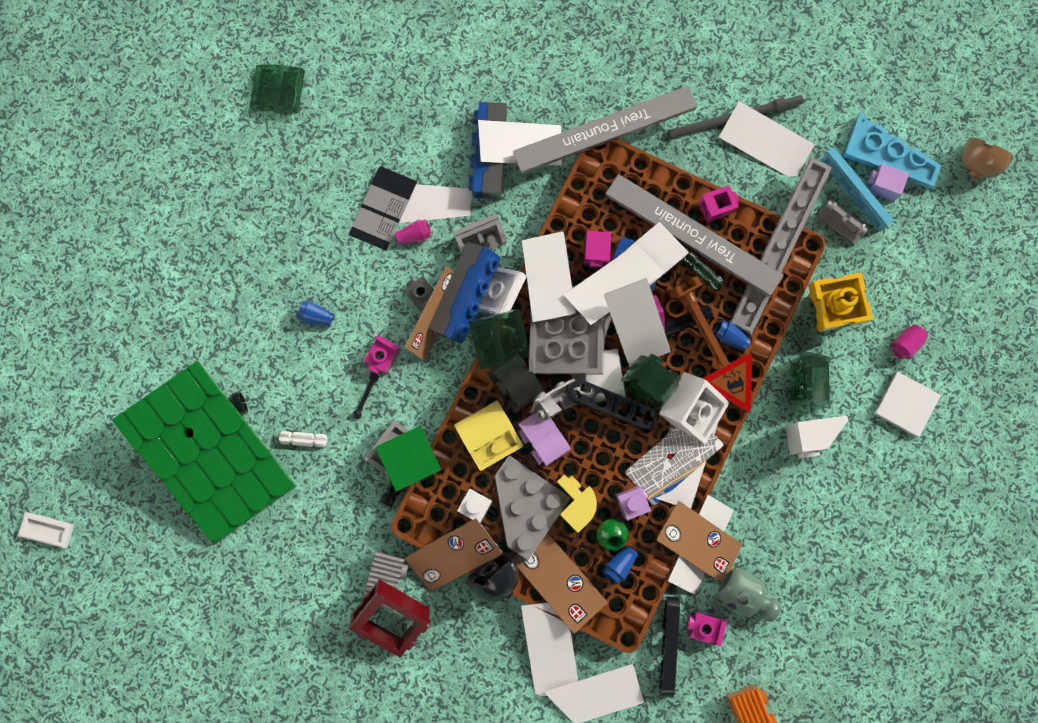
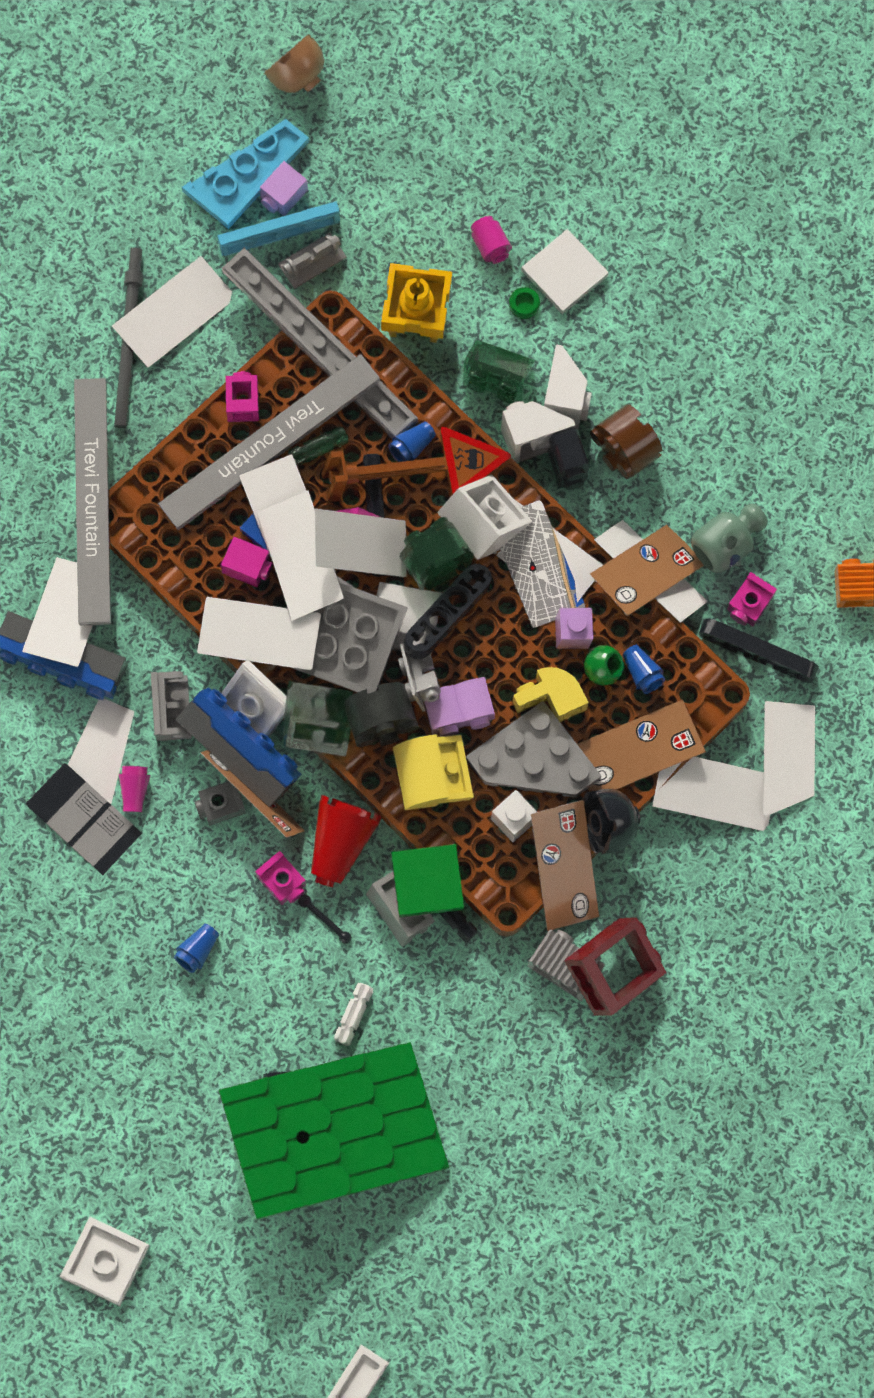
camera: 75 degrees left, 5 degrees down
(81, 329) = (104, 1261): none -> white tile
(424, 386) = (339, 839): none -> red cone
(763, 455) = (568, 459): none -> black brick
(775, 422) = (529, 428): none -> white slope
(793, 494) = (627, 441): none -> reddish brown brick
(870, 383) = (524, 303): none -> green tile

